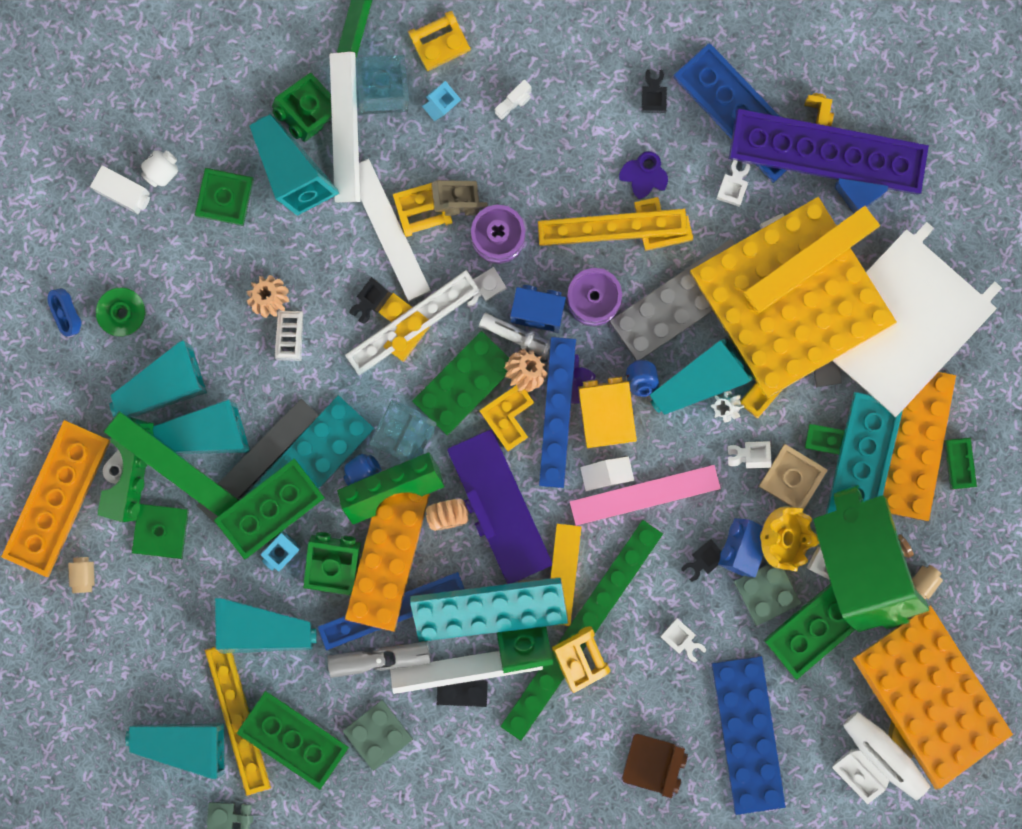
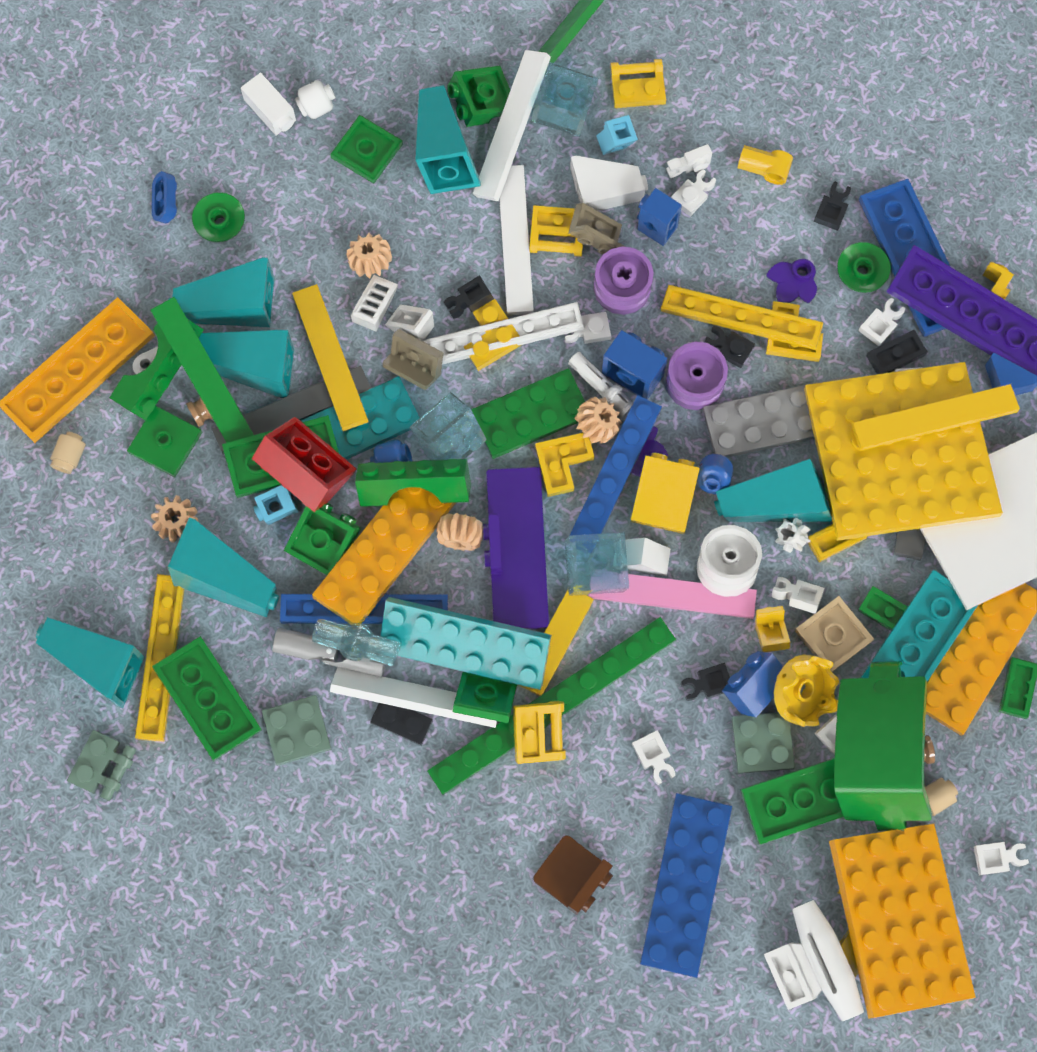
camera: 20 degrees right, 10 degrees down
(178, 496) = (199, 411): none -> medium nougat wheel
(198, 587) = (164, 521): none -> light nougat gear
(272, 402) = (330, 357): none -> yellow tile
(292, 511) = (303, 463): none -> red slope
(328, 343) = (412, 320): none -> white slope
(346, 377) = (414, 360): none -> dark tan bracket
(399, 645) = (356, 642): none -> clear light blue piece
(448, 148) = (607, 183): none -> white slope
(506, 164) = (658, 216): none -> blue brick
(526, 129) = (692, 194): none -> white plate
(574, 499) = (596, 564): none -> clear light blue brick
(586, 75) = (773, 165): none -> yellow piece
(615, 256) = (734, 348): none -> black plate
(683, 465) = (729, 560): none -> white wheel
(700, 128) = (863, 256): none -> green dish
(740, 494) = (772, 629): none -> yellow bracket
(756, 208) = (897, 353): none -> black plate
(990, 614) = (996, 859): none -> white plate

